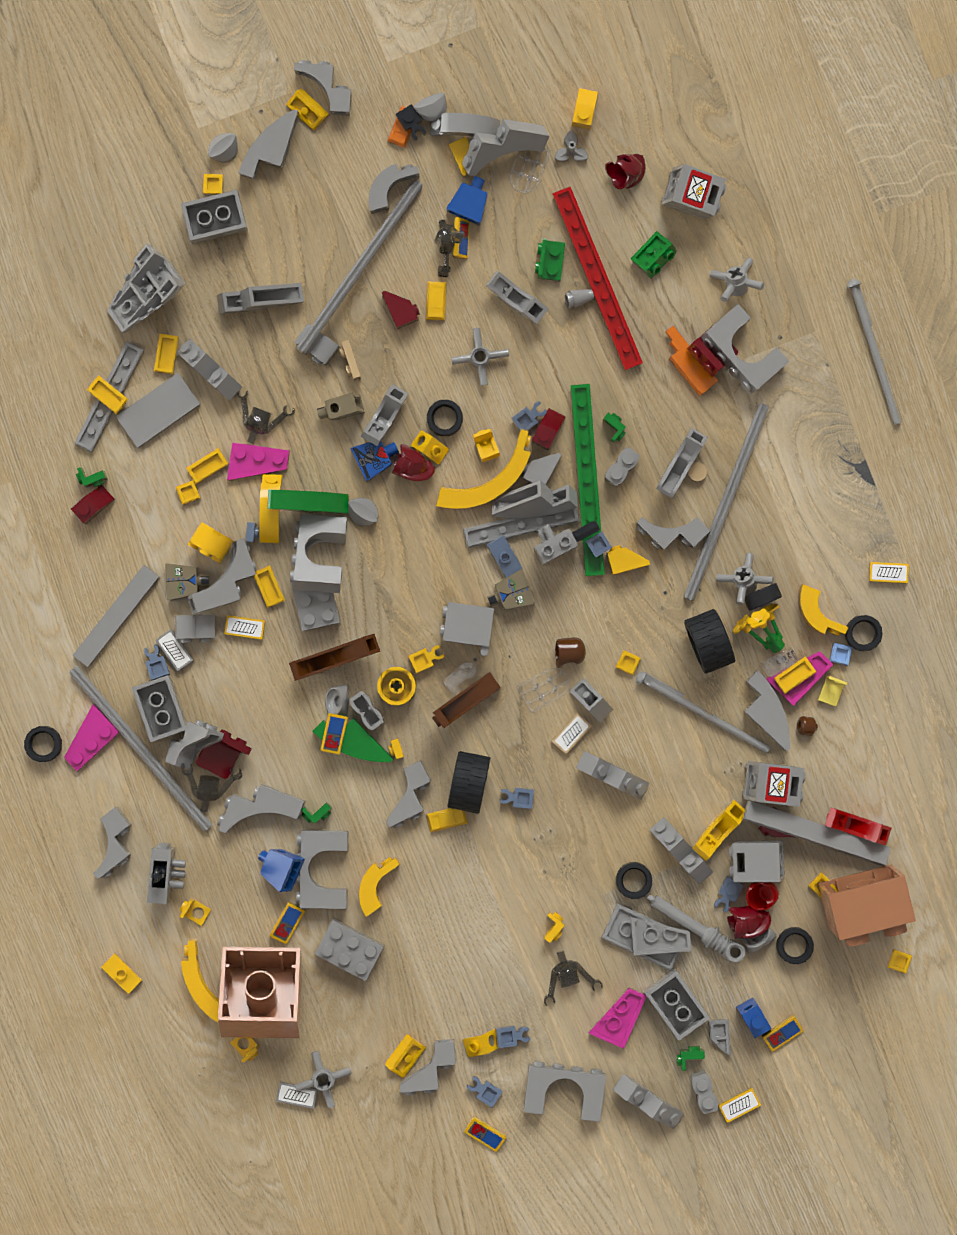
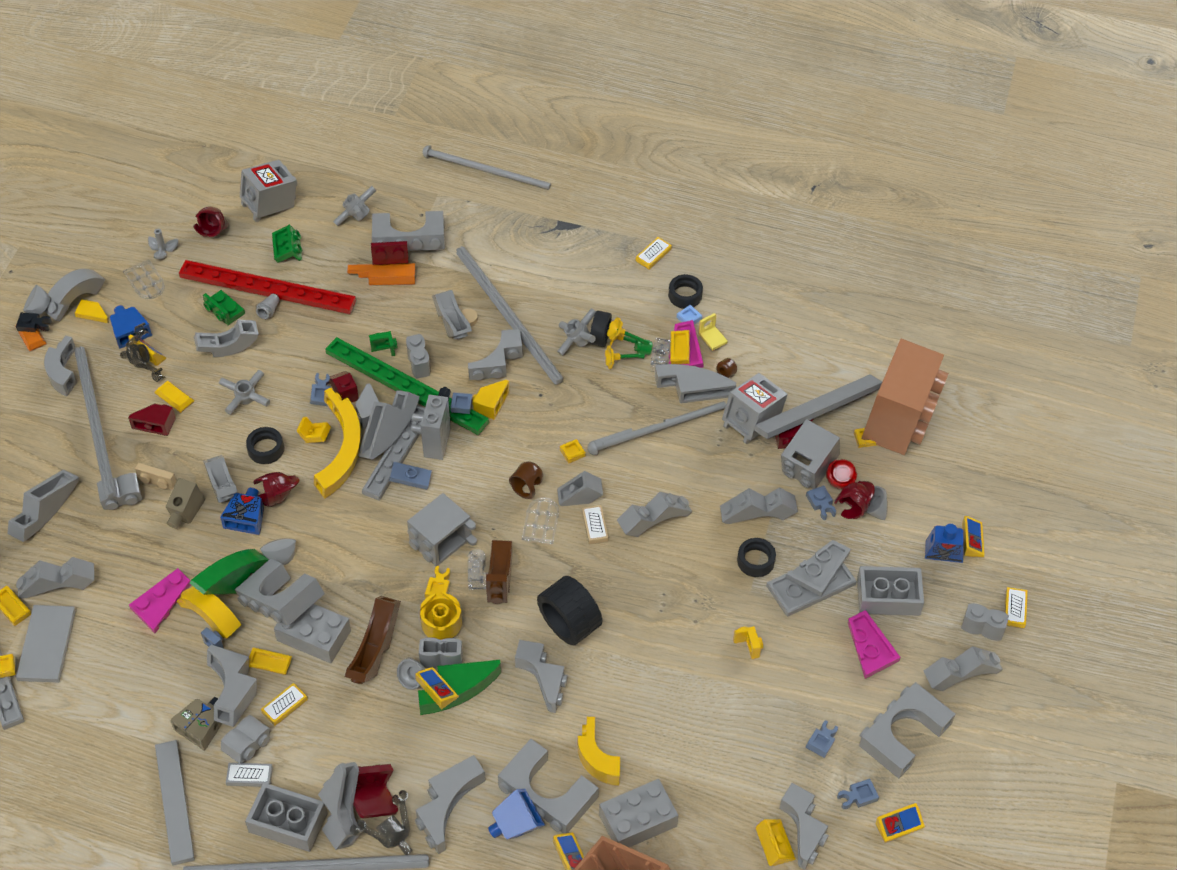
camera: 50 degrees left, 35 degrees down
(92, 504) = (64, 751): dark red slope -> none
(95, 479) = (47, 729): green bracket -> none
(156, 665) = (243, 797): sand blue plate -> none
(188, 492) = (133, 668): yellow tile -> none
(207, 466) = (127, 637): yellow tile -> none
(210, 542) = (188, 671): yellow brick -> none
(259, 419) = (130, 571): clear smoke piece -> none
(322, 813) = (493, 763): green bracket -> none
(395, 749) = (493, 653): yellow plate -> none
(430, 447) = (277, 465): yellow bracket -> none
(446, 819) = (587, 663): yellow tile -> none
(480, 1044) = (810, 770): yellow bracket -> none
(510, 137) = (110, 265): light grey arch -> none
(512, 592) = (445, 481): dark tan torso -> none
(521, 797) = (615, 593): sand blue plate -> none
(567, 975) = (800, 658): clear smoke piece -> none
(584, 109) = (145, 221): yellow slope -> none
(692, 1052) = (941, 616): green bracket -> none
(709, 641) = (604, 375): black tyre -> none
(709, 936) = (849, 533): light grey piece -> none
(719, 830) = (761, 468): yellow arch -> none
(720, 1034) = (941, 583): light grey tile -> none
(809, 945) = (902, 470): black tyre -> none
(810, 610) = (644, 311): yellow arch -> none
(858, 826) = (844, 374): red arch -> none
(899, 961) = (970, 424): yellow tile -> none

